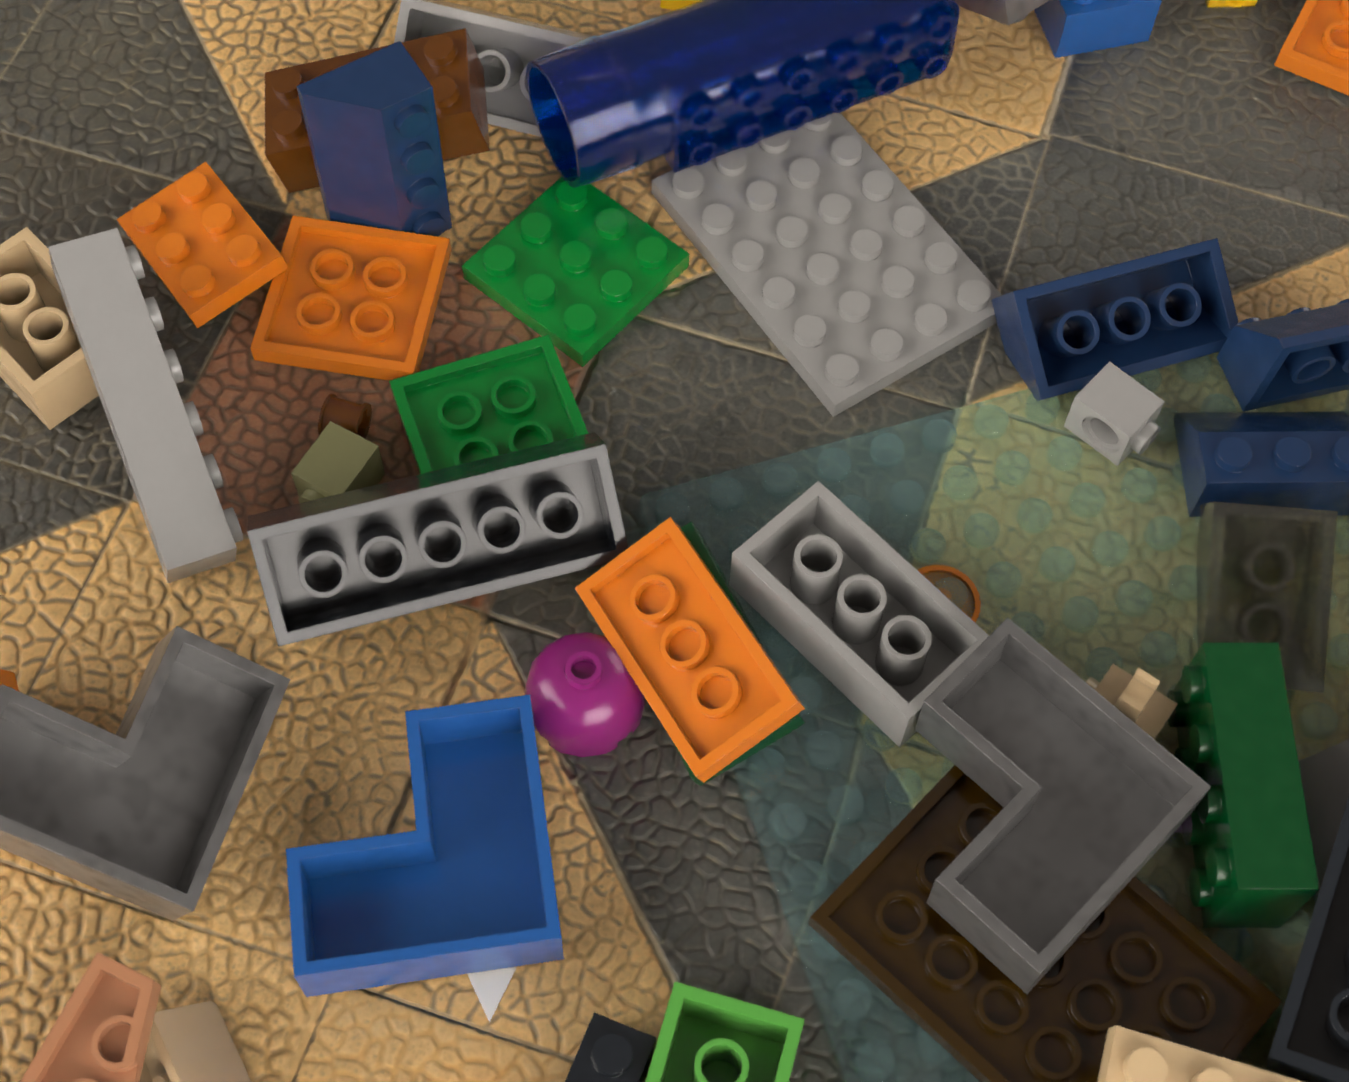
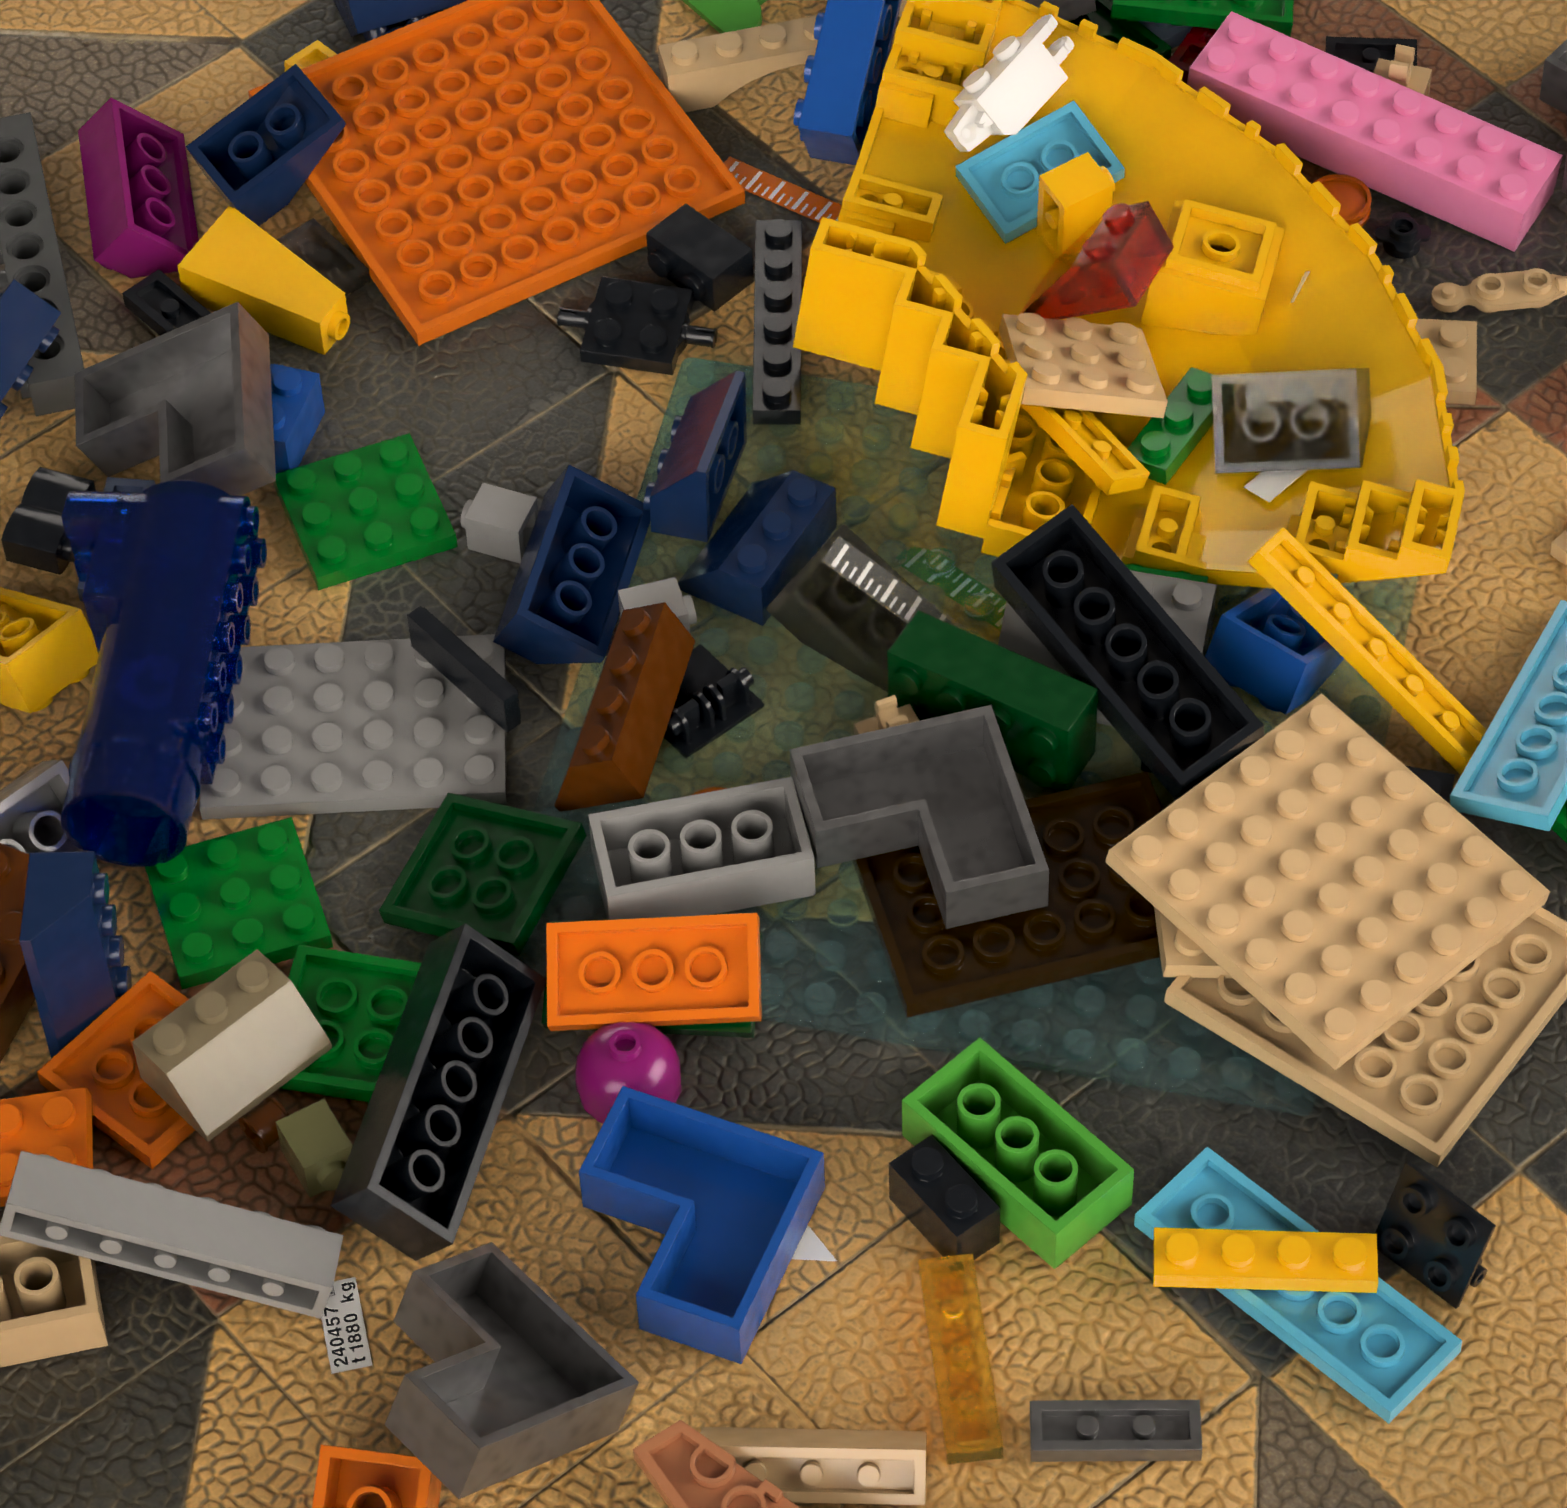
camera: 55 degrees left, 10 degrees down
(172, 608) = (345, 1328): none -> white sticker
(388, 338) = (230, 1045): none -> slope
(723, 438) = (484, 870): none -> dark green plate
(930, 290) = (464, 668): none -> black tile
(978, 447) = (628, 710): none -> reddish brown slope
(1049, 504) = (709, 703): none -> black hinge
(1063, 126) = (364, 511): none -> green plate
(1128, 226) = (499, 522): none -> light grey brick
(1303, 621) = (881, 584): none -> clear sticker

